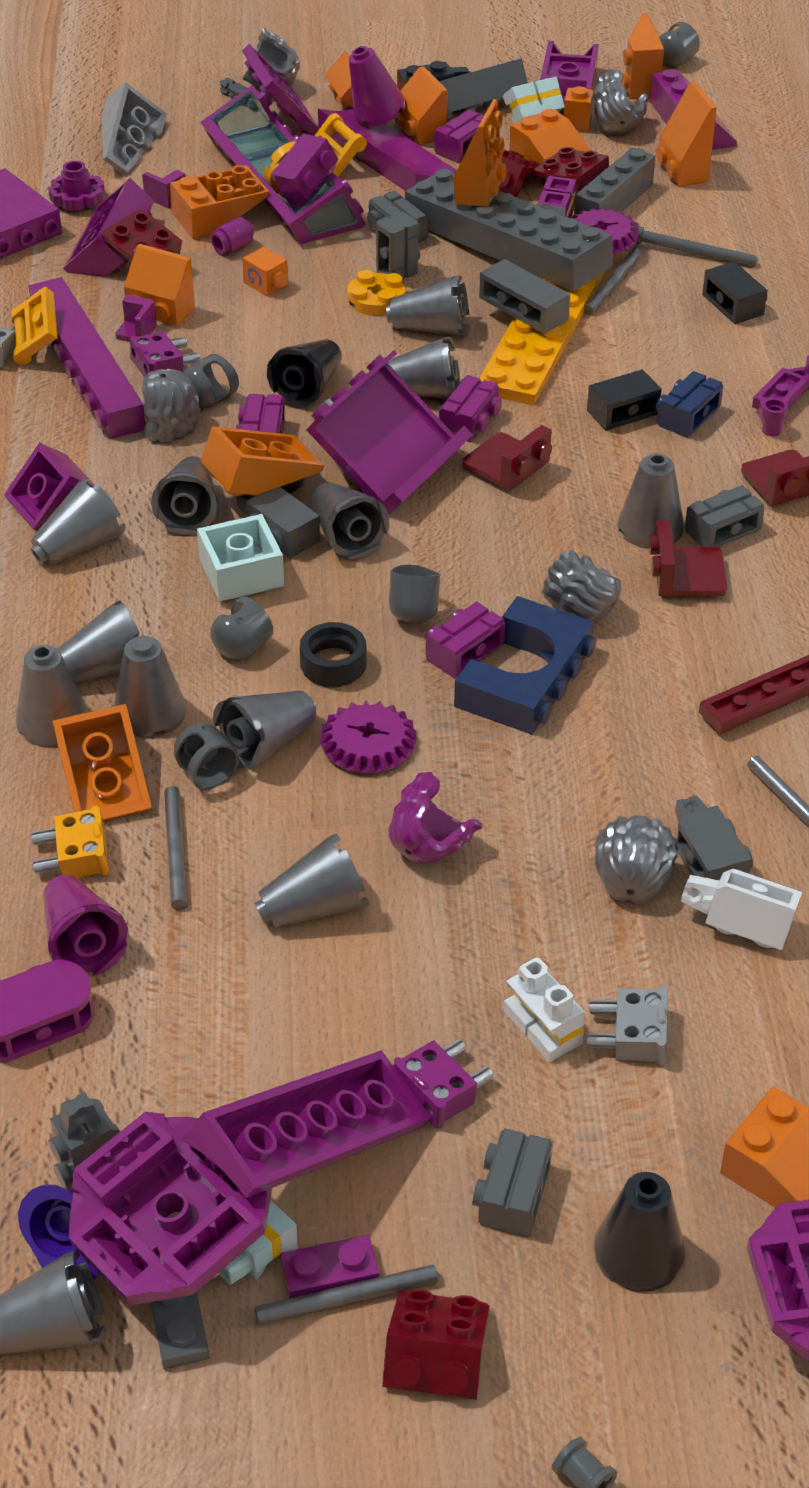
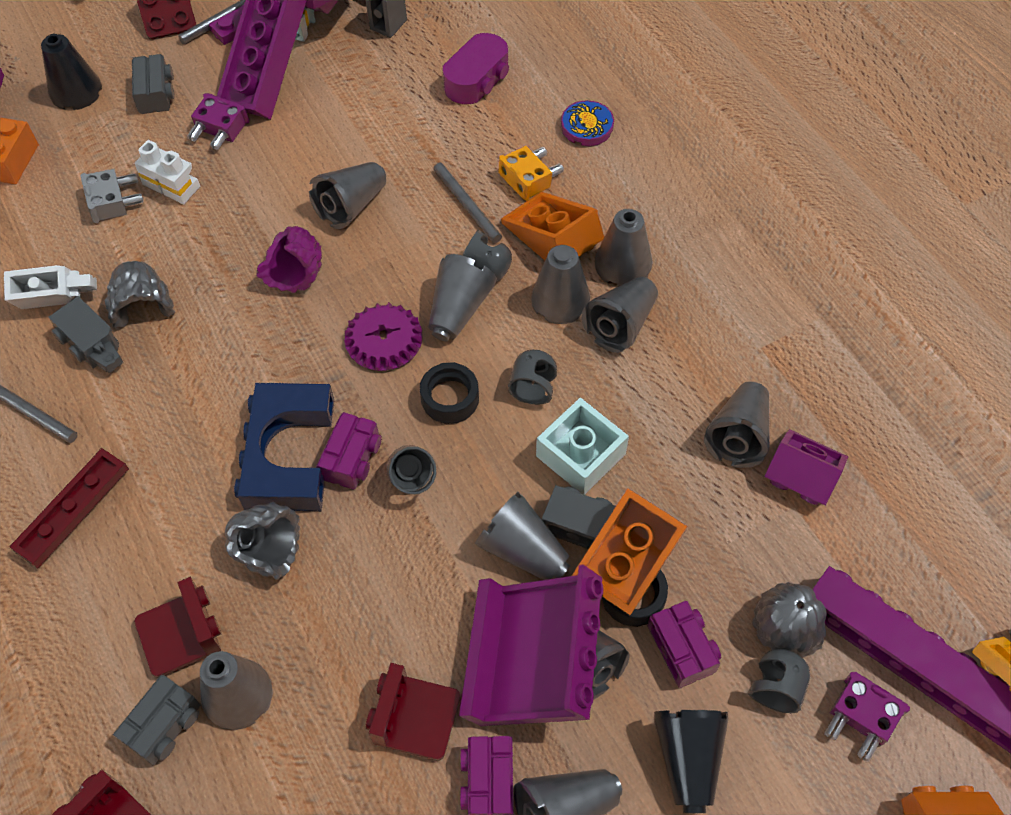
camera: 155 degrees right, 15 degrees up
(82, 926) = (483, 114): magenta cone -> none
(138, 318) = (937, 764): magenta panel -> none
(185, 497) = (685, 497): flat silver cone -> none

